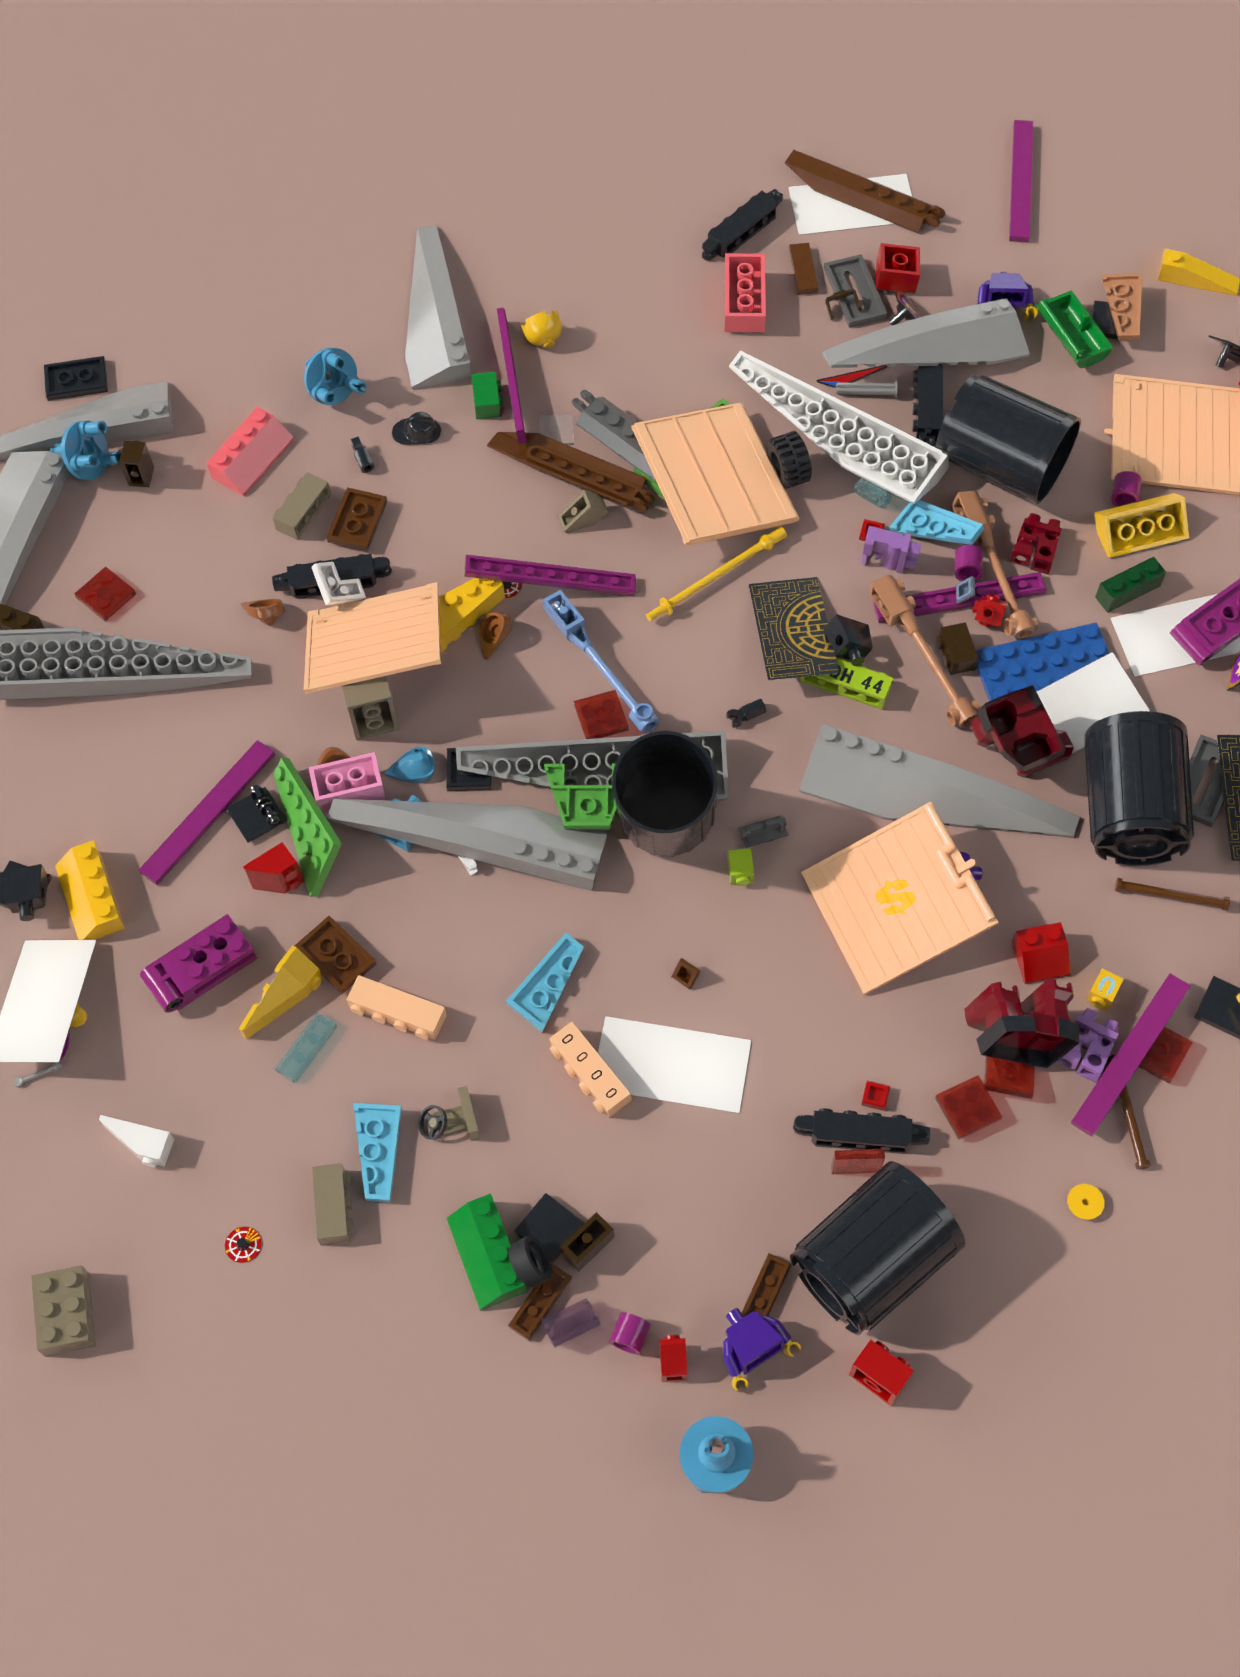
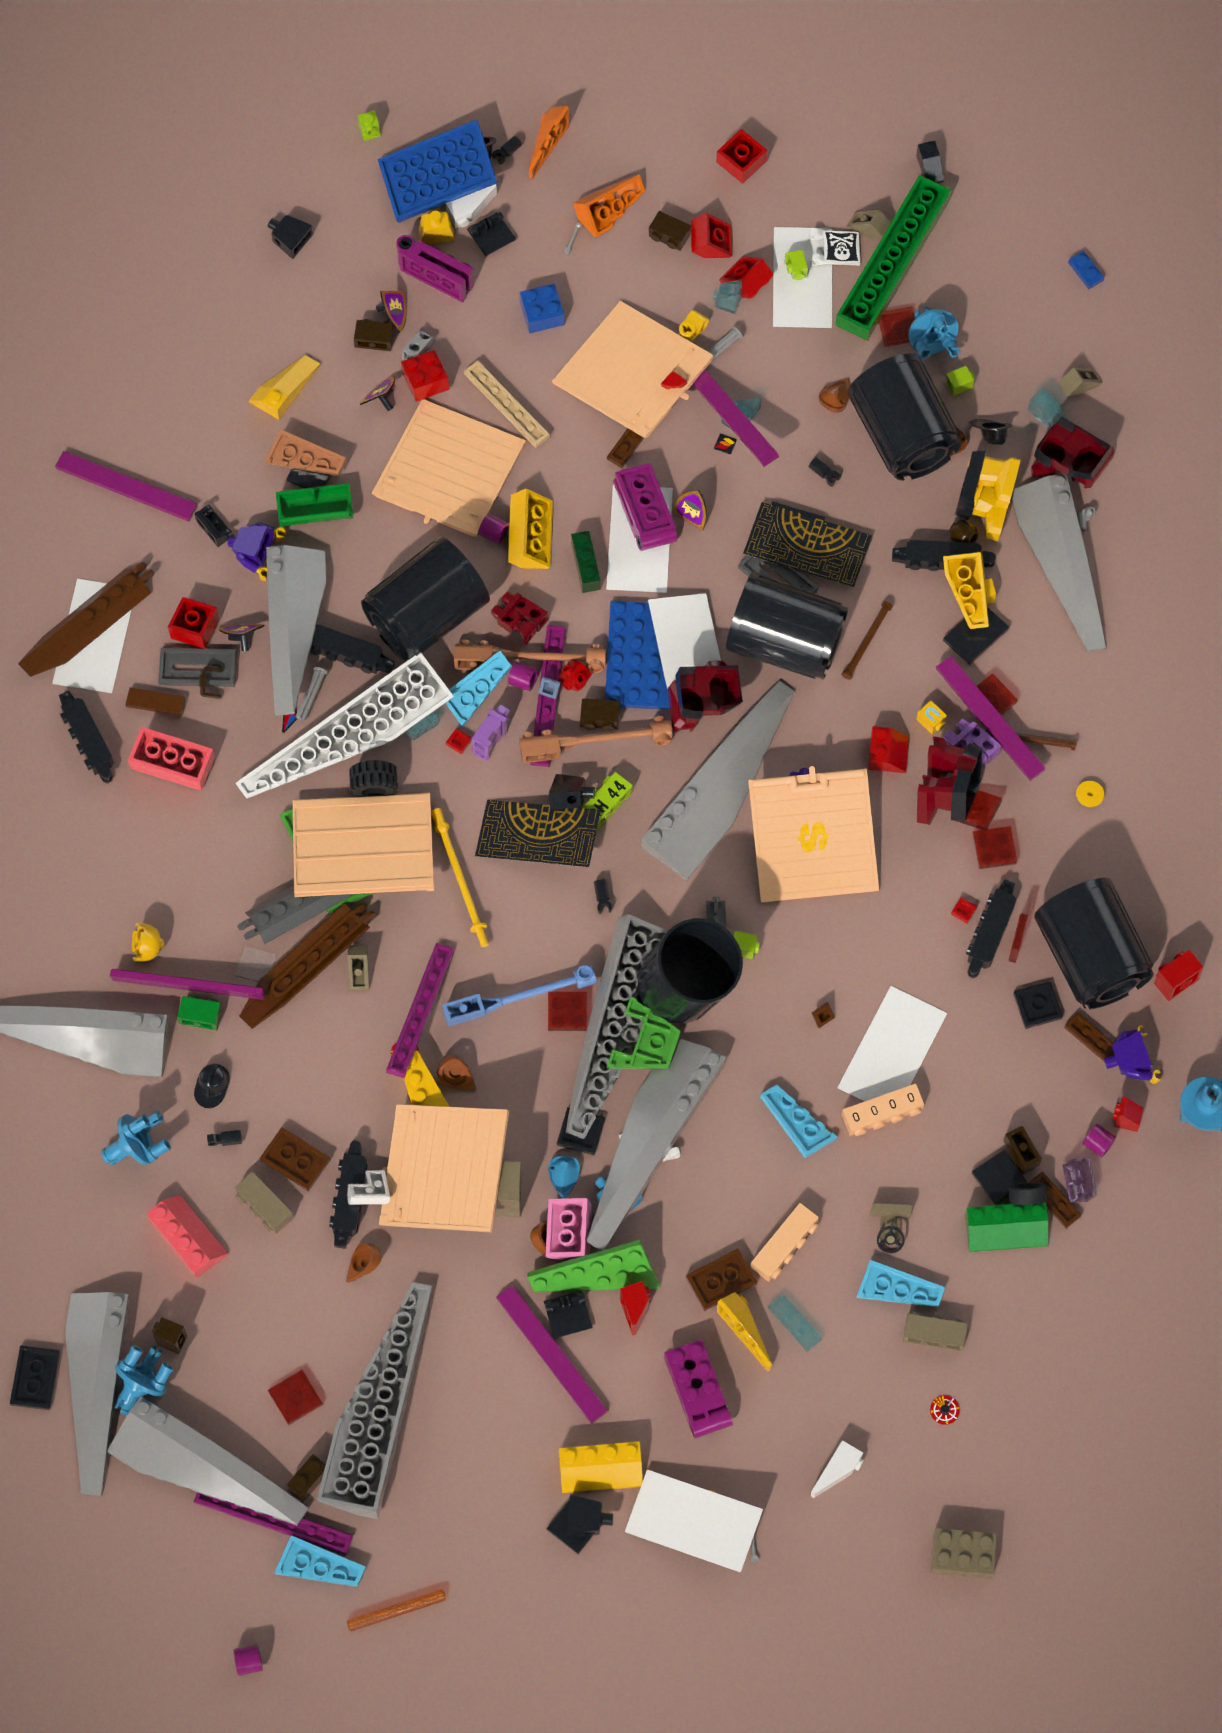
camera: 75 degrees left, 5 degrees up
(785, 1214) = (1037, 1005): none -> black tile
(1013, 255) = (213, 525): none -> black hinge

